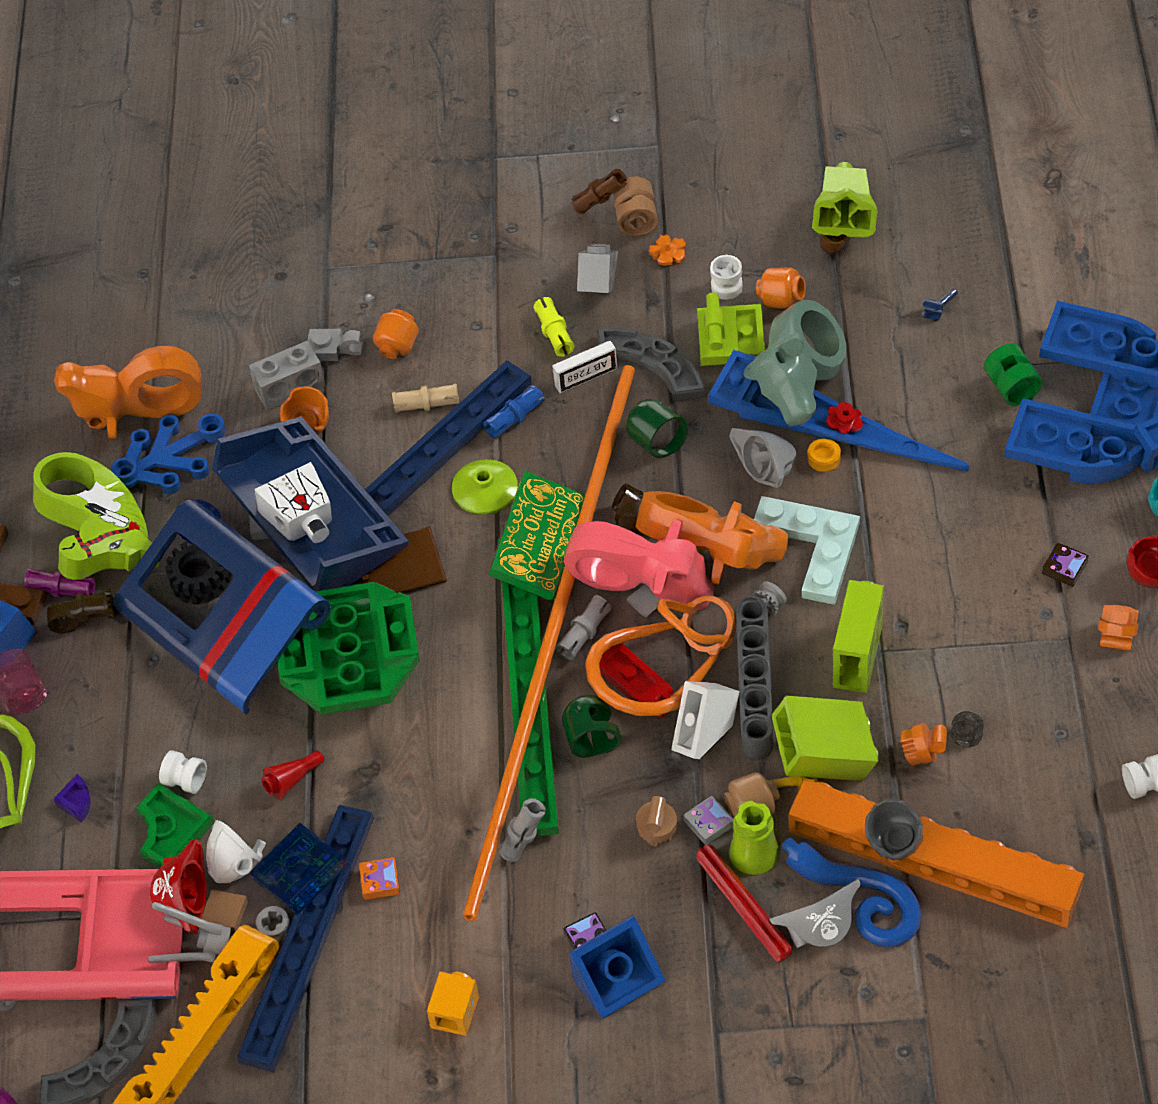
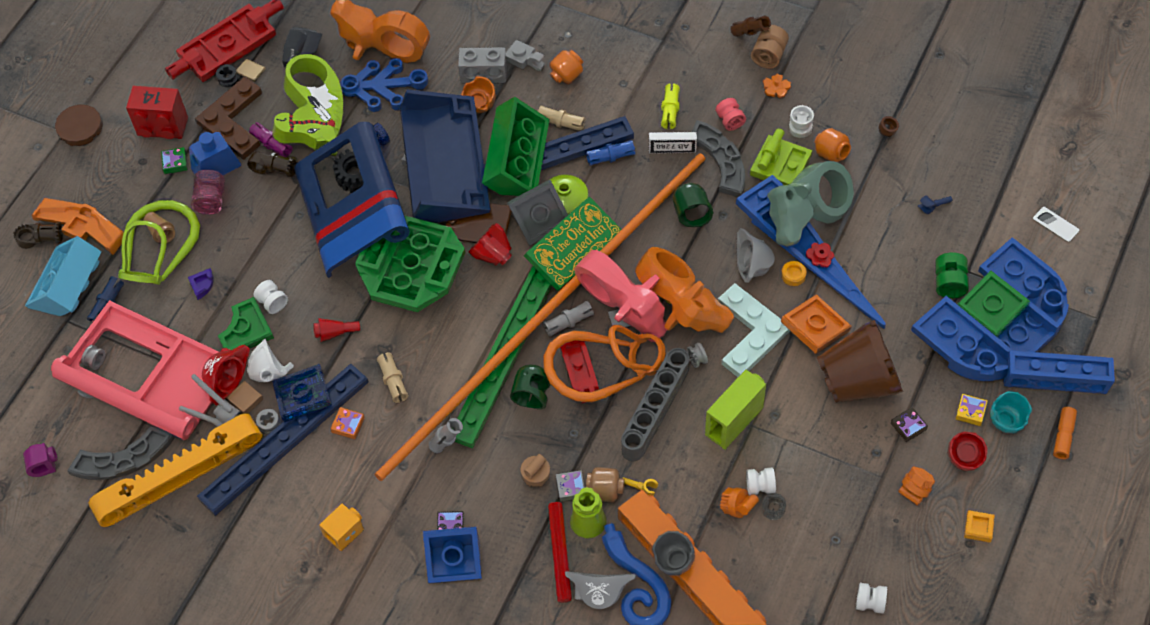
camera: 25 degrees right, 5 degrees up
(26, 449) = (300, 42): none -> black slope
(296, 504) = (433, 154): white torso -> none
(397, 455) = (515, 148): none -> green slope
(404, 797) = (392, 377): none -> tan pin
(437, 582) = (492, 246): none -> red brick
(471, 517) = (537, 211): none -> dark grey bracket
(596, 268) = (719, 78): light grey slope -> none
(626, 507) = (640, 249): dark brown connector -> none
(635, 304) = (730, 113): none -> coral wheel
(703, 717) = (605, 415): white slope -> none
(824, 738) = (672, 468): lime brick -> none
(845, 203) = (908, 104): lime piece -> none
(887, 499) = (816, 324): none -> orange tile
(936, 706) = (761, 481): none -> white wheel
(977, 519) = (860, 366): none -> reddish brown cone
(1083, 381) = (994, 303): none -> green tile
(1091, 268) = (1056, 224): none -> white sticker
(1125, 515) = (971, 410): none -> tile

